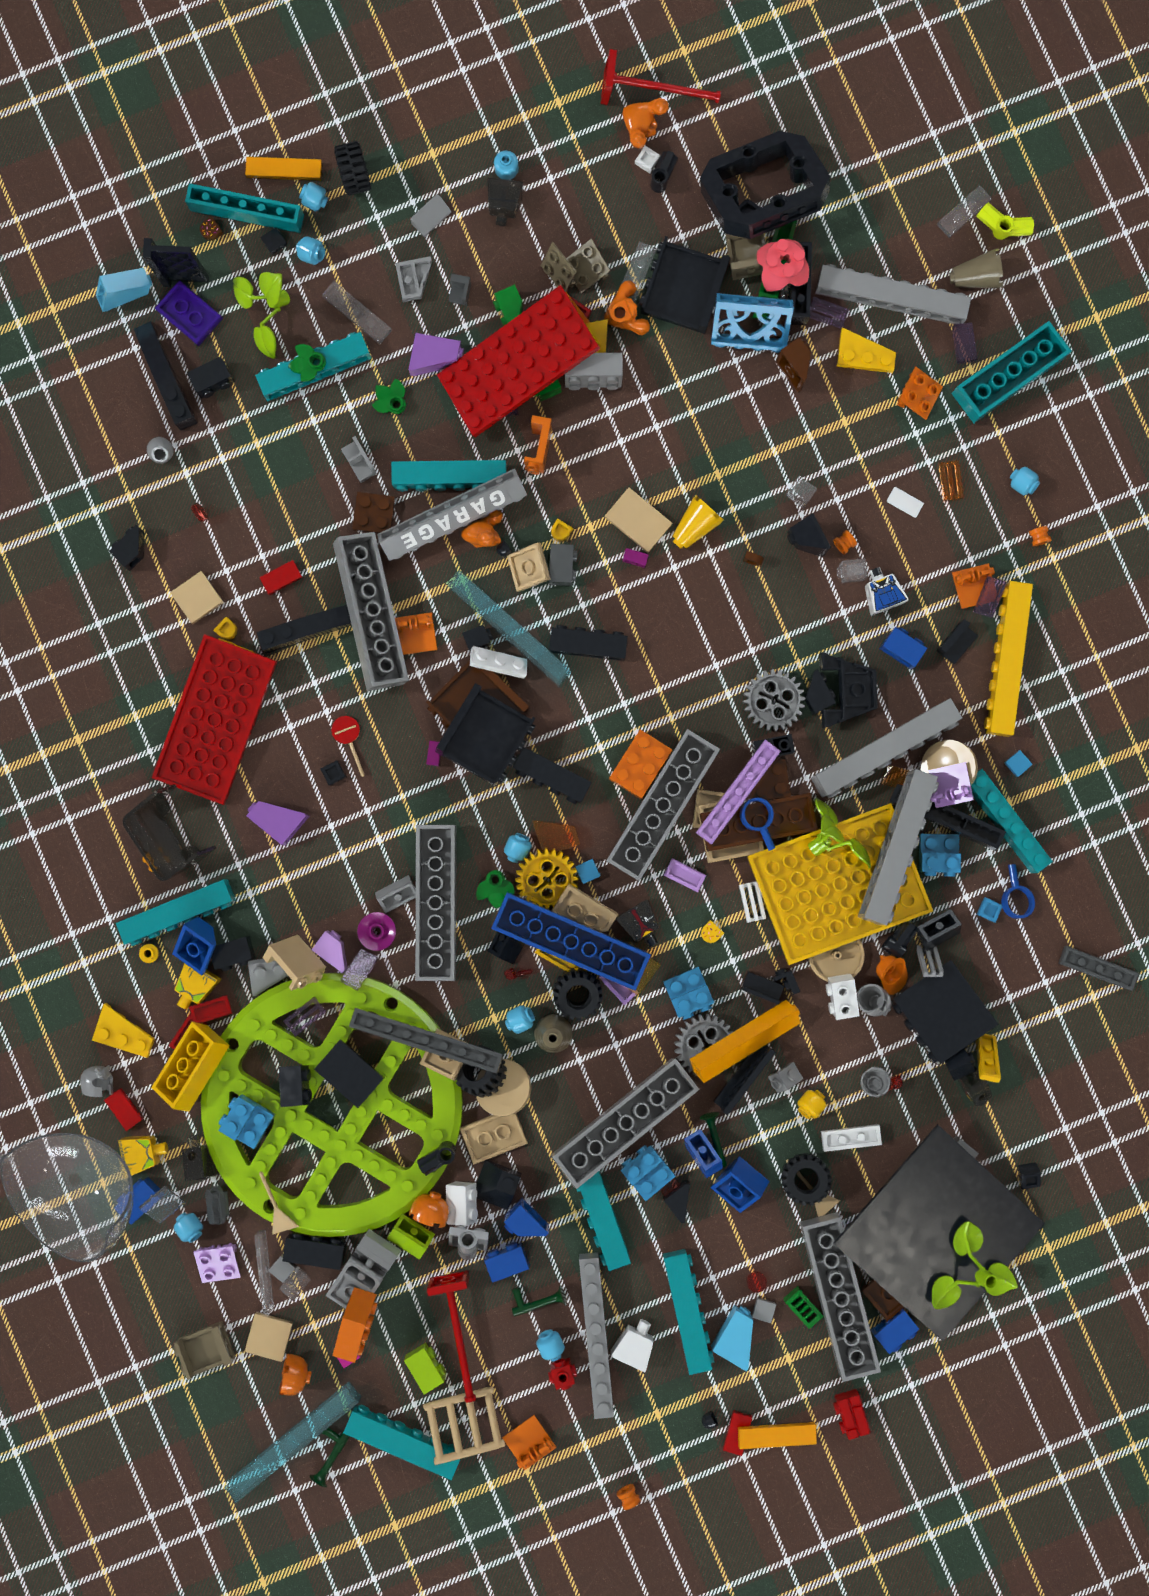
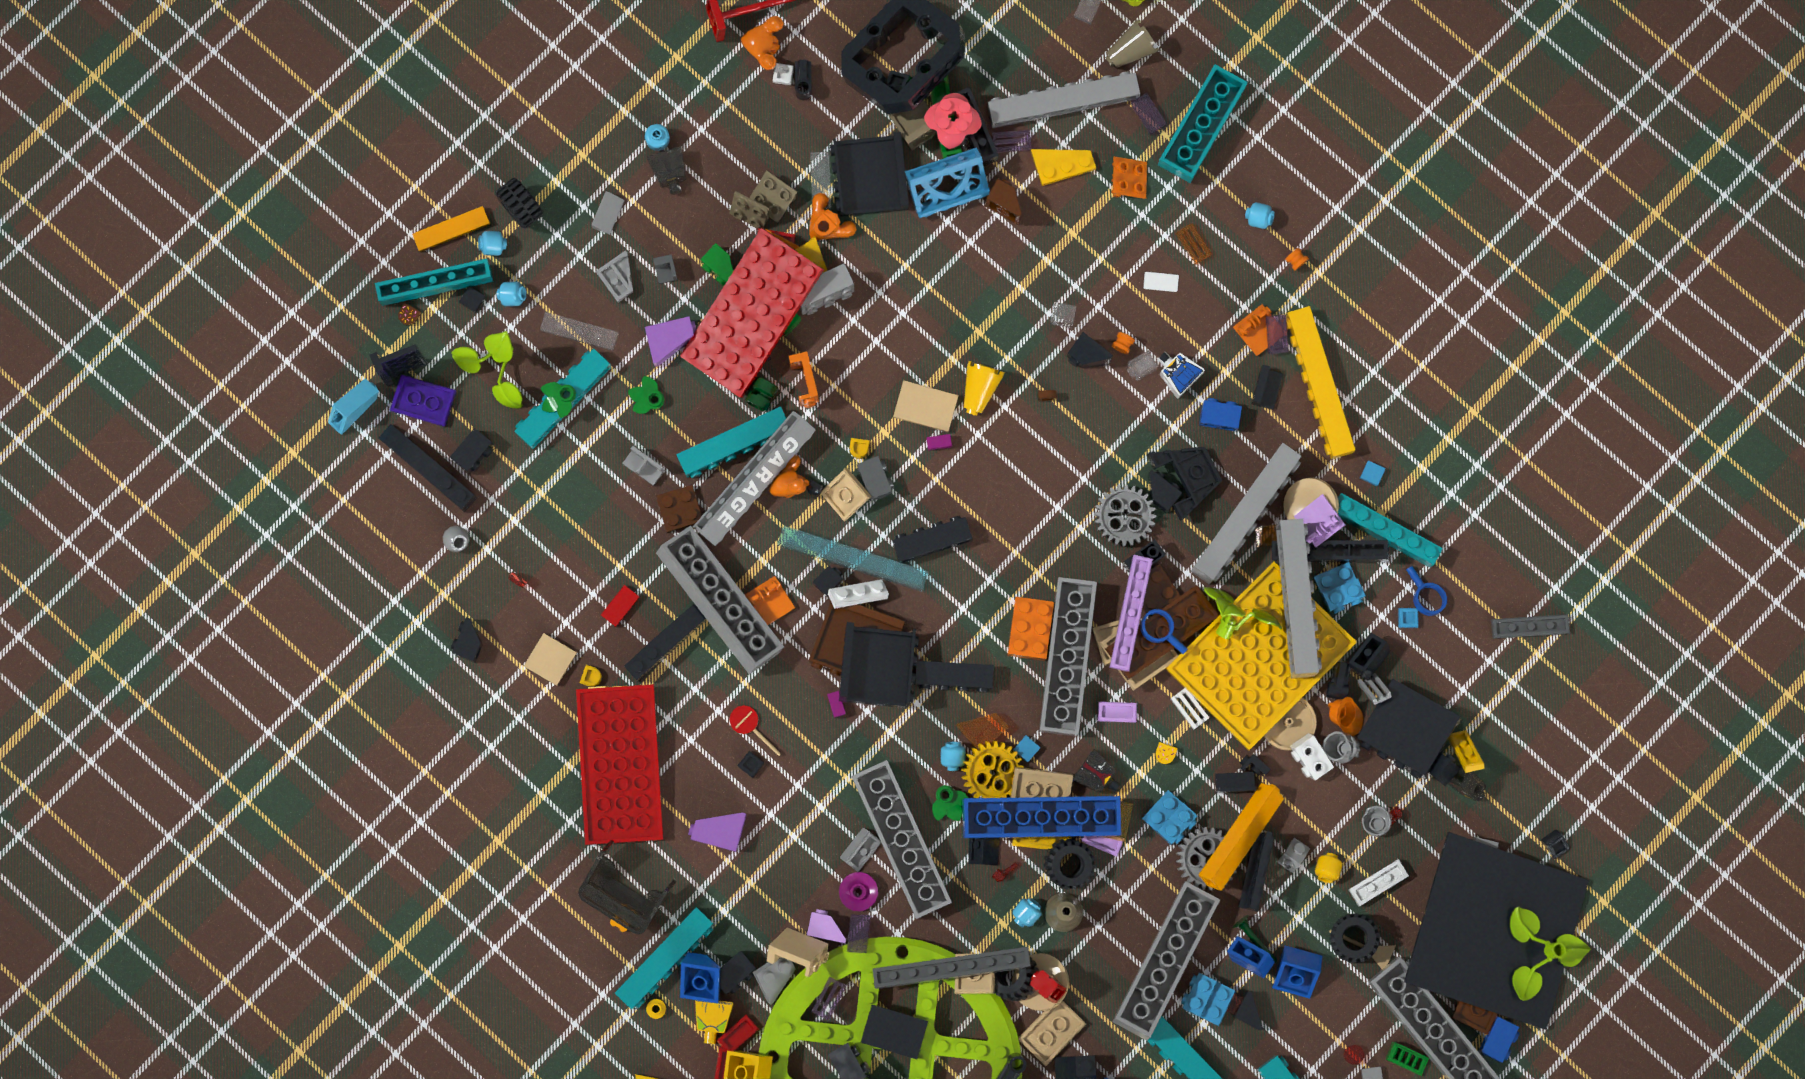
camera: 30 degrees left, 5 degrees down
(494, 442) = (761, 395): none -> dark green wheel
(505, 1097) = (1047, 986): none -> red brick

